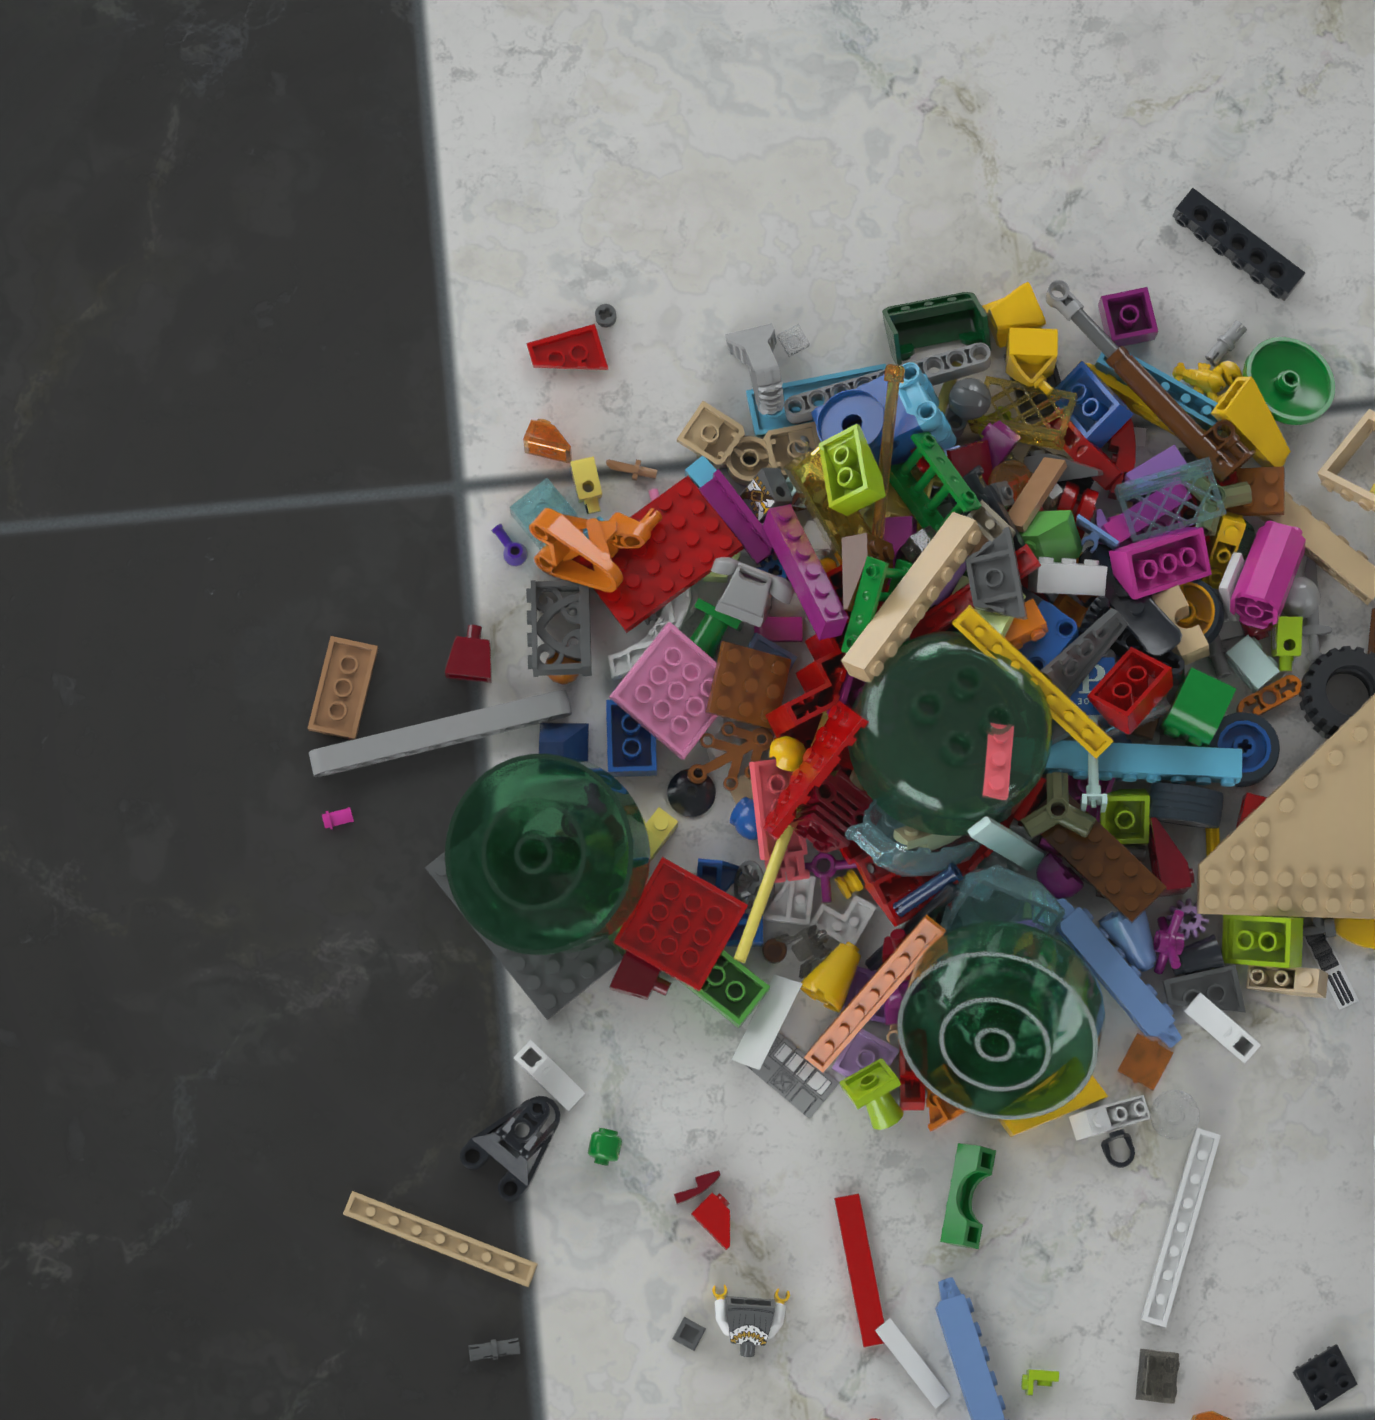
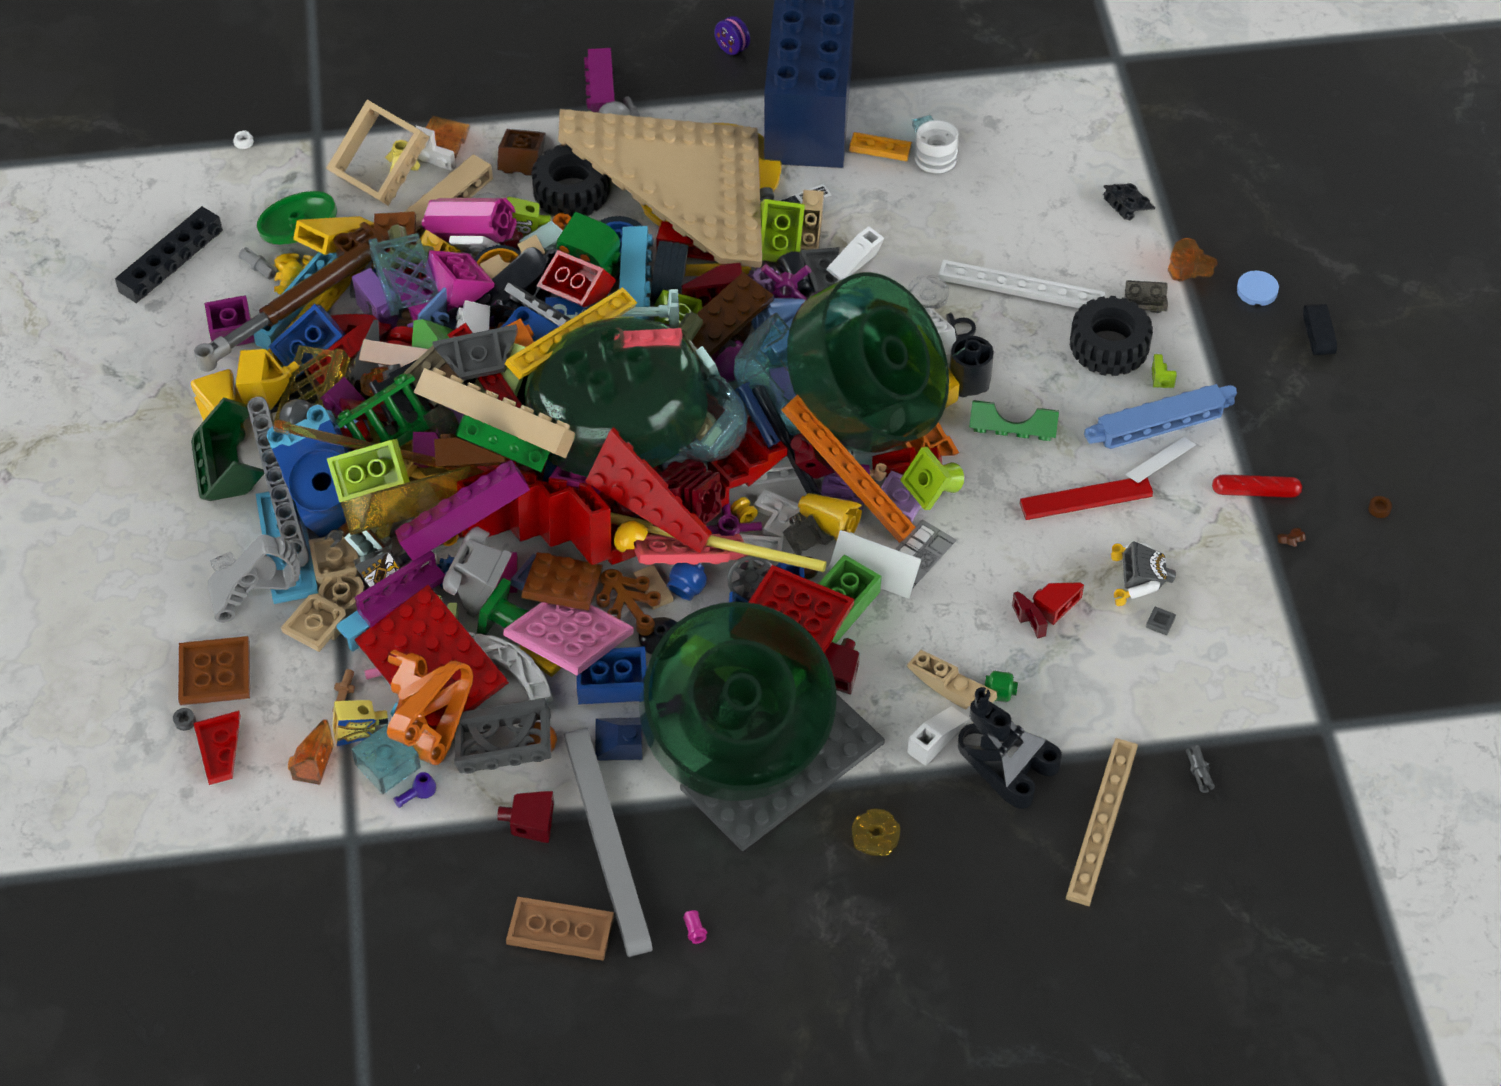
camera: 90 degrees left, 25 degrees down
(447, 996) = (880, 844): none -> clear yellow plate
(611, 1094) = (946, 679): none -> tan slope
(661, 339) = (214, 670): none -> dark orange plate
(1041, 1150) = (972, 364): none -> black cylinder
(1125, 1324) = (1108, 355): none -> black tyre

